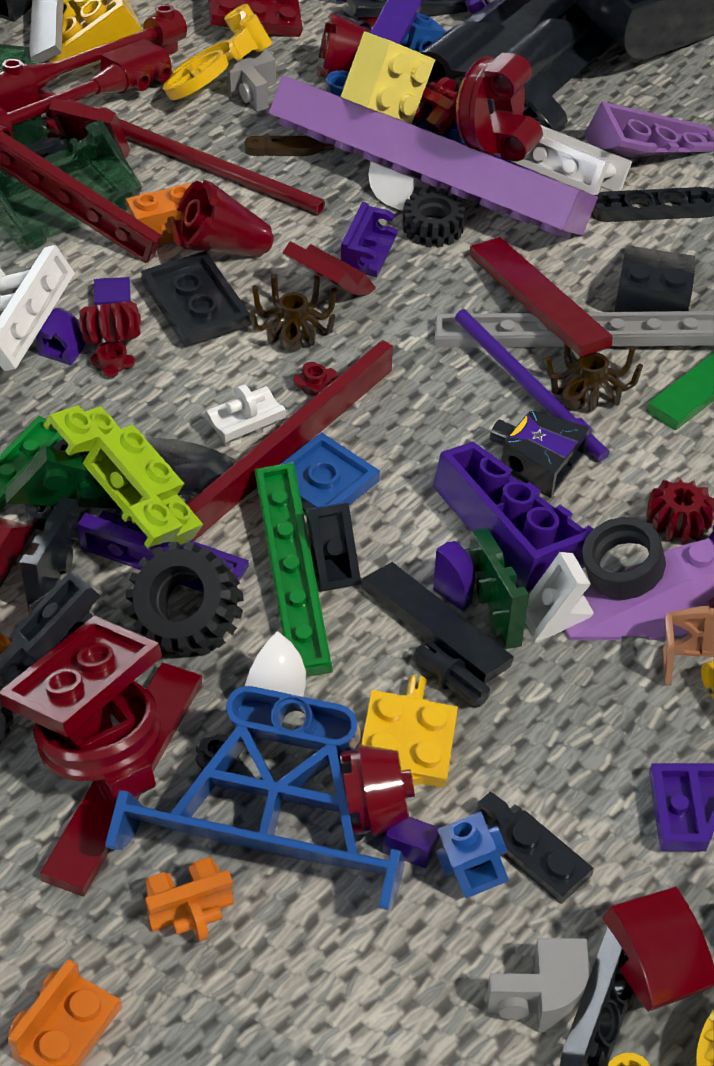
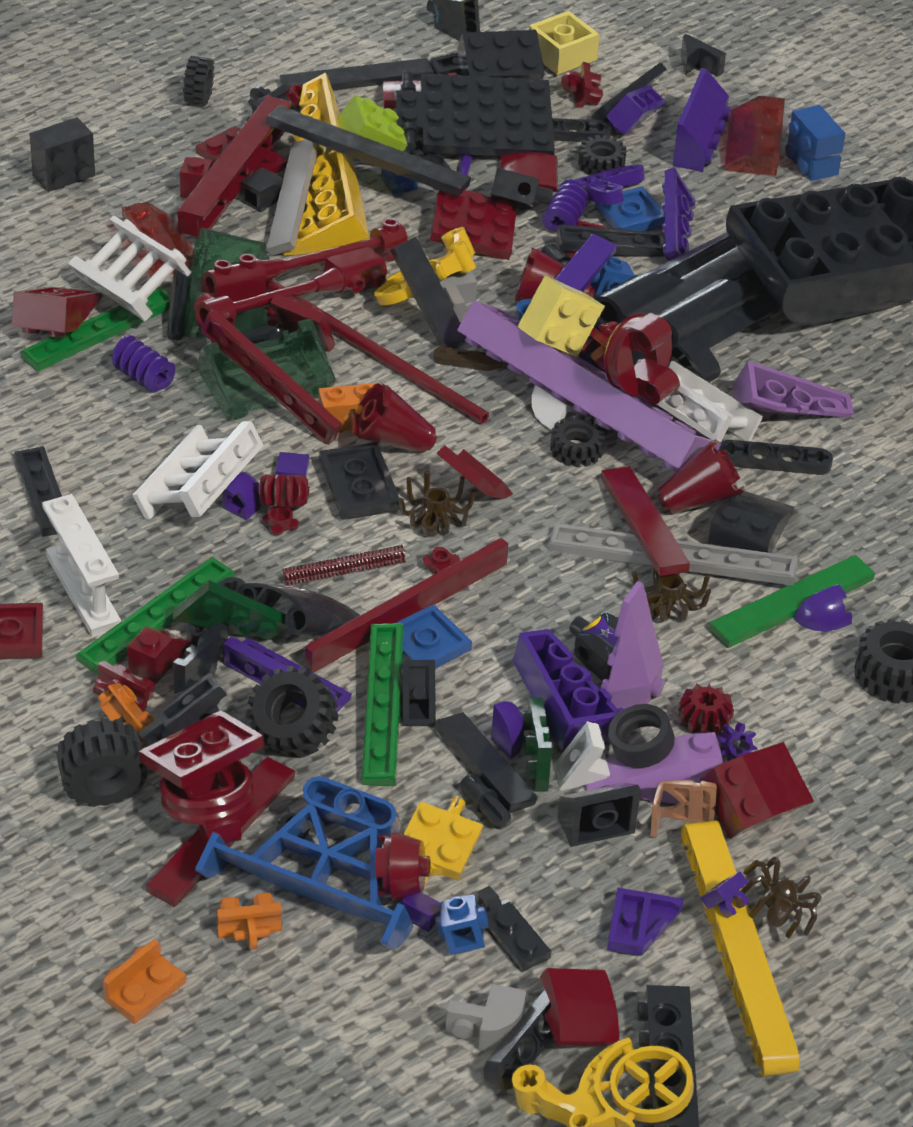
camera: 10 degrees right, 5 degrees down
(129, 473) = (269, 609): lime bracket -> none
(198, 400) = (343, 564): none -> dark red axle
(226, 76) = (428, 292): none -> black tile
(245, 414) = (375, 580): white hips -> none
(278, 667) = (352, 770): white brick -> none
(367, 240) = (515, 453): dark purple hinge -> none
(527, 380) = (599, 566): dark purple bar -> none
(590, 457) = (636, 654): none -> medium lavender wedge
(591, 240) = (701, 481): none -> dark red cone
(599, 665) = (599, 813): none -> black slope

